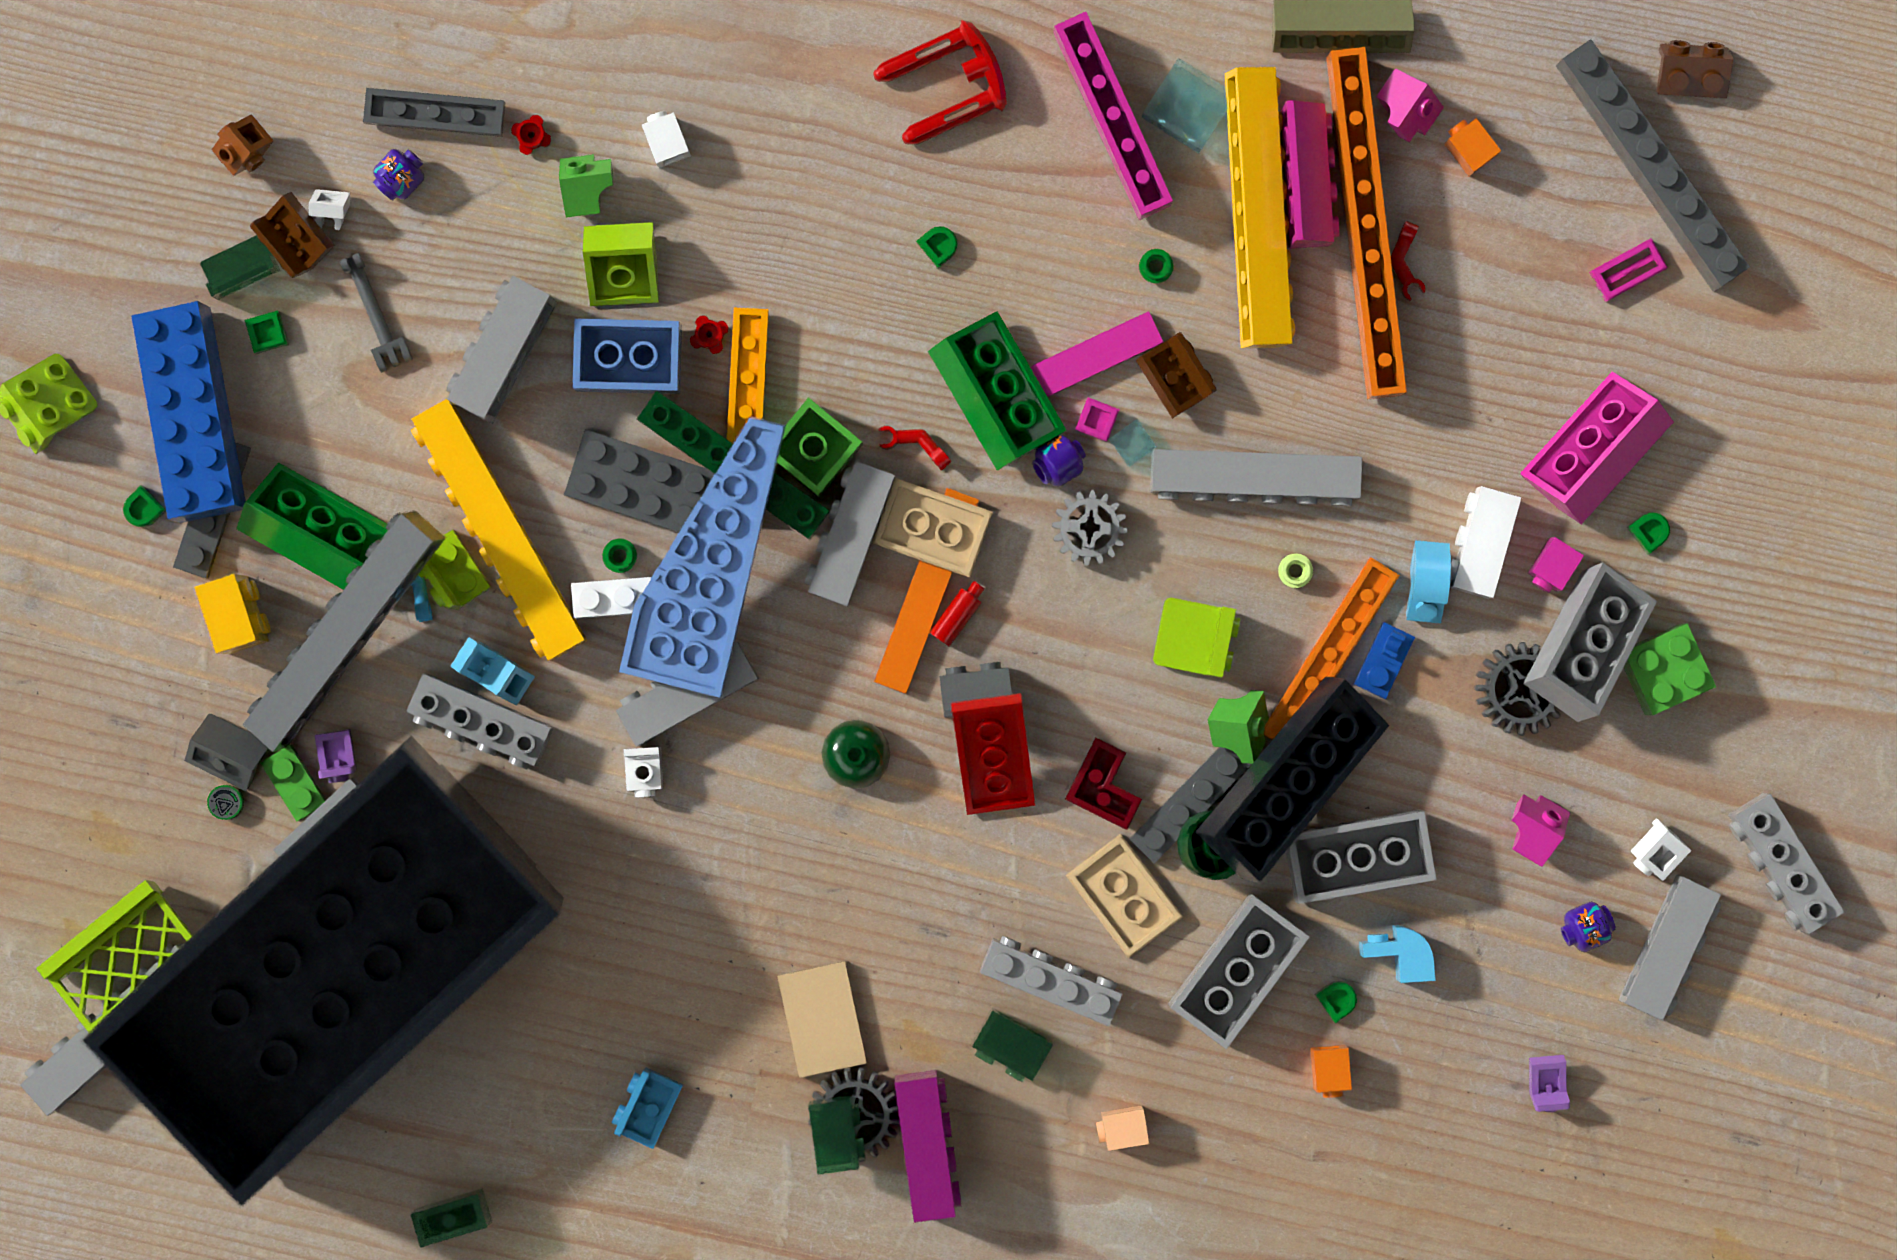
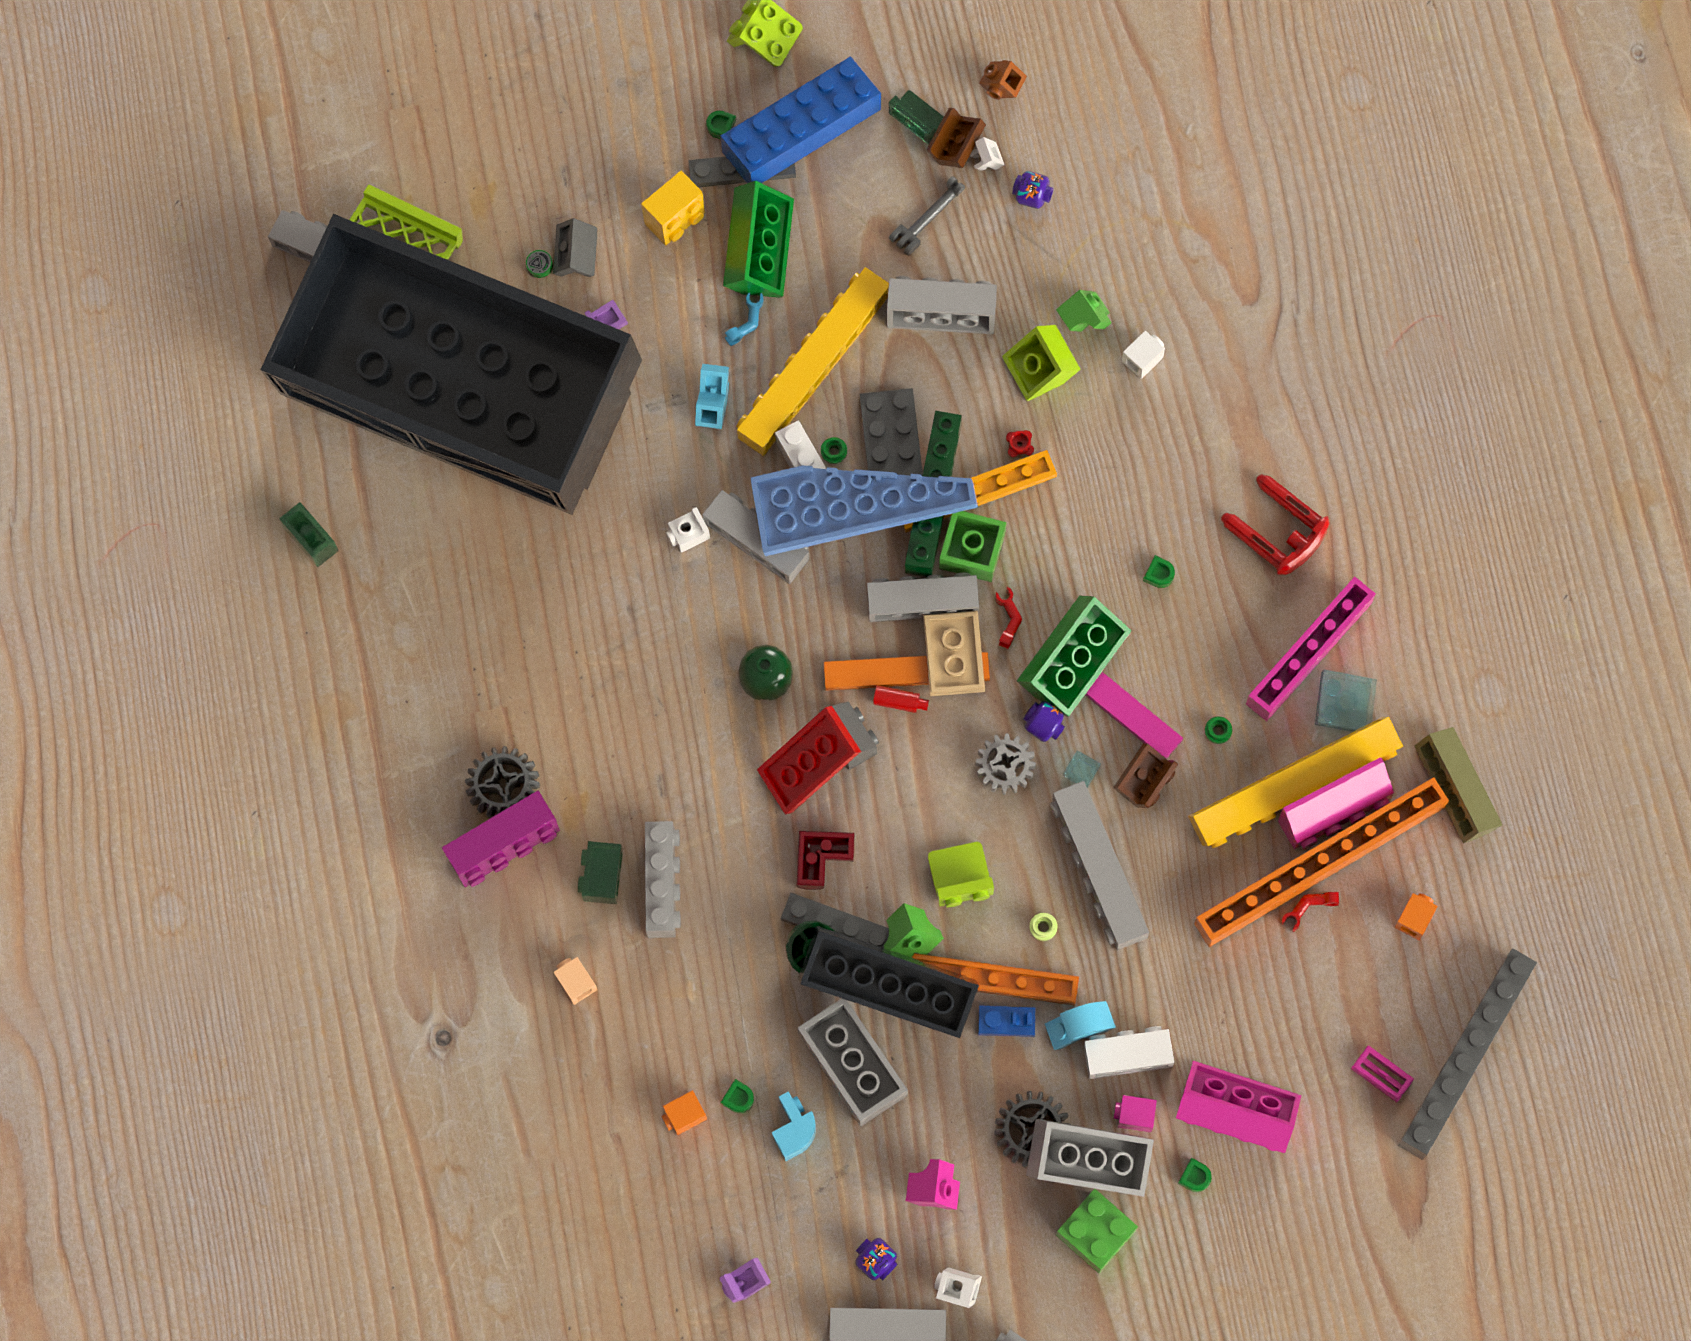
camera: 75 degrees right, 15 degrees down
(266, 332) = (881, 152): green tile -> none
(293, 782) = (578, 295): bright green plate -> none
(343, 630) = (695, 281): brick -> none
(434, 112) = (1087, 195): dark grey plate -> none
(454, 574) = (768, 339): lime bracket -> none
(480, 720) = (673, 405): light grey brick -> none
(522, 129) = (1103, 258): red plate -> none
(627, 356) = (977, 392): medium blue brick -> none
(648, 1107) = (445, 635): dark azure bracket -> none
(822, 1019) = (562, 732): tan tile -> none
(835, 1134) = (482, 768): clear green brick -> none
(1097, 419) = (1087, 737): dark pink tile -> none
(1124, 895) = (747, 908): tan tile -> none
(1238, 971) = (728, 1010): light grey brick -> none
(1410, 104) = (1423, 856): dark pink brick -> none
(1694, 69) = (1554, 1055): reddish brown bracket -> none

